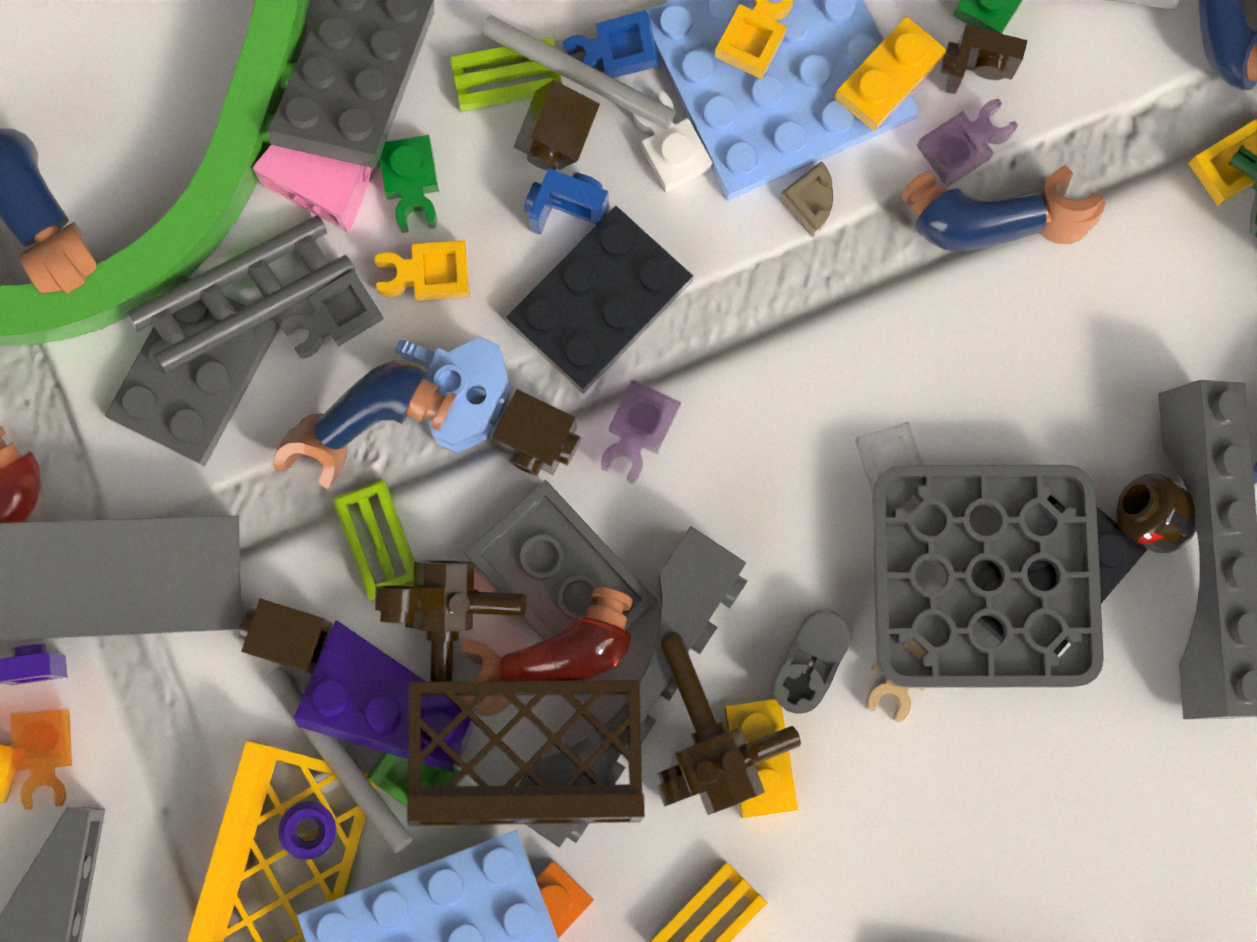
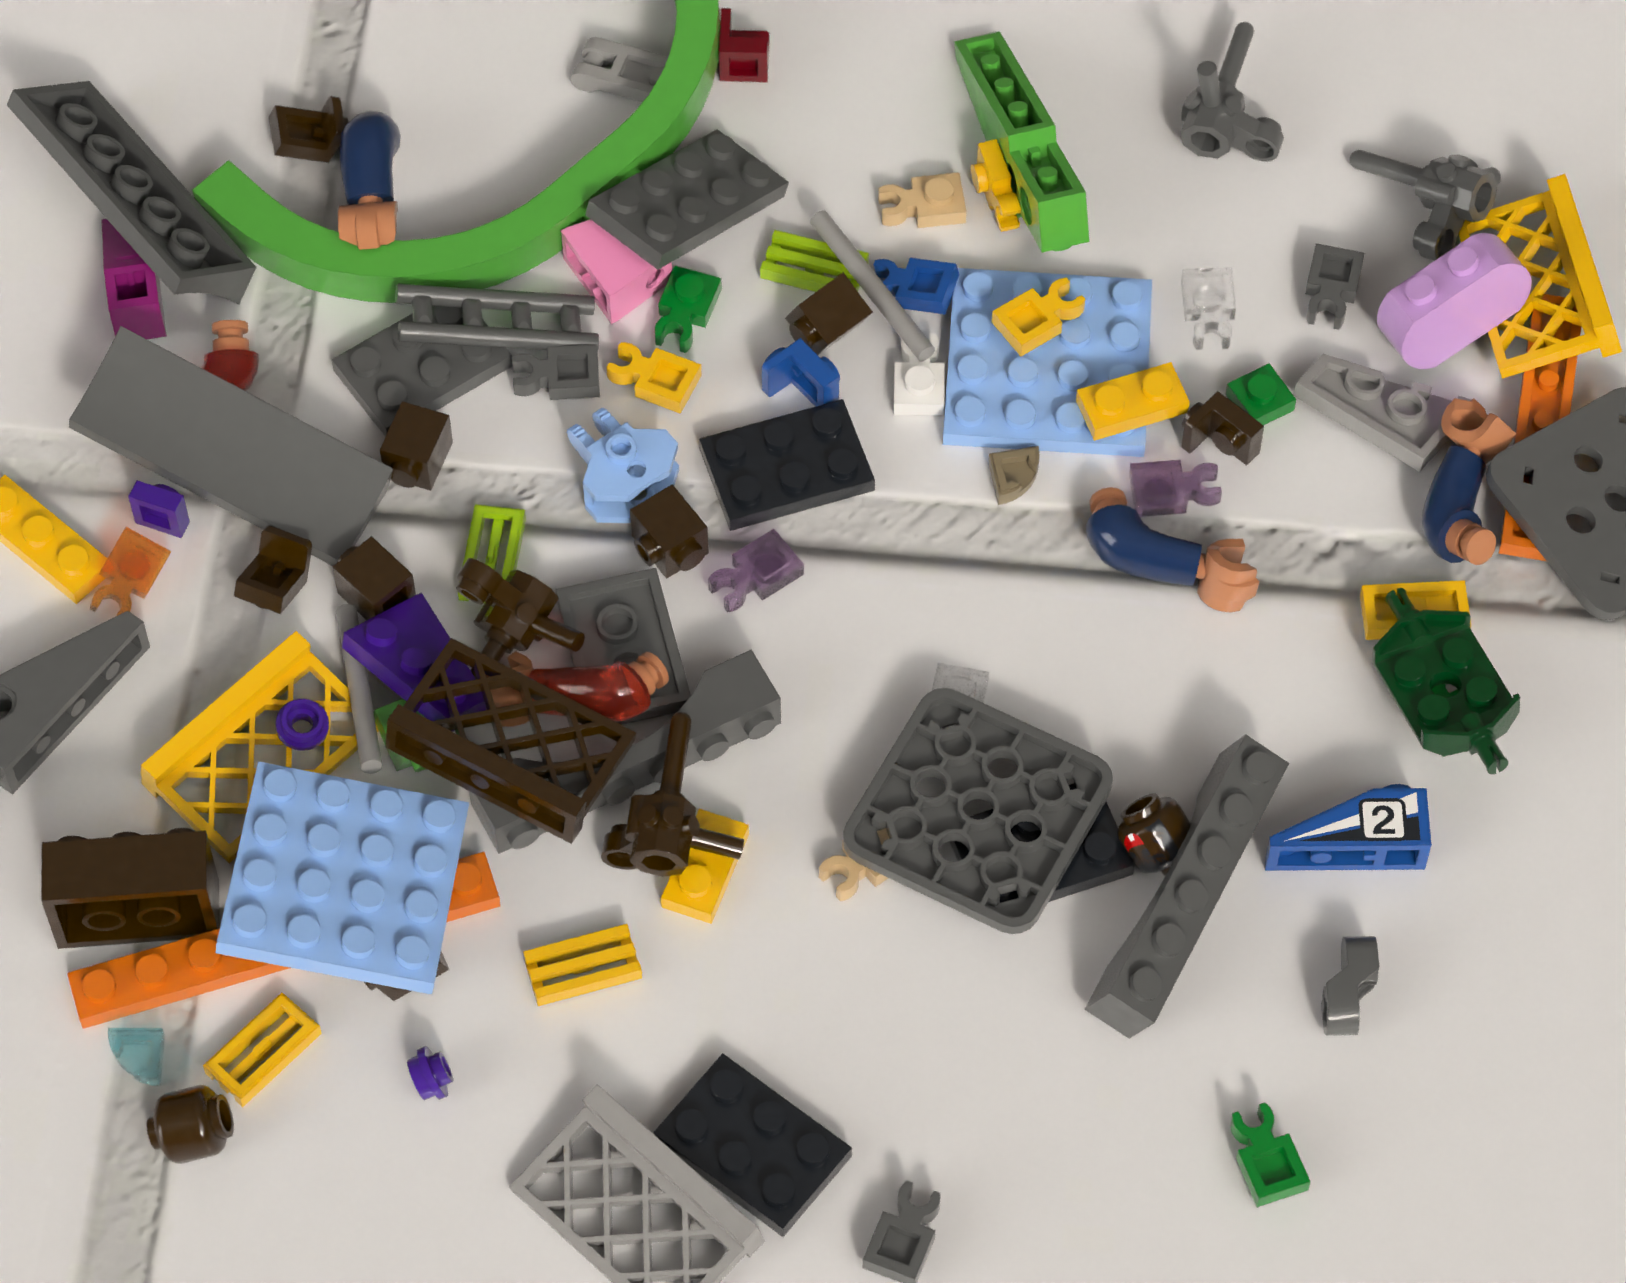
camera: 30 degrees right, 20 degrees down
(183, 677) = (276, 571): none -> dark brown bracket
(241, 470) = (416, 445): none -> dark brown brick
(383, 394) = (565, 428): piece -> none
(802, 686) = (792, 808): dark grey piece -> none

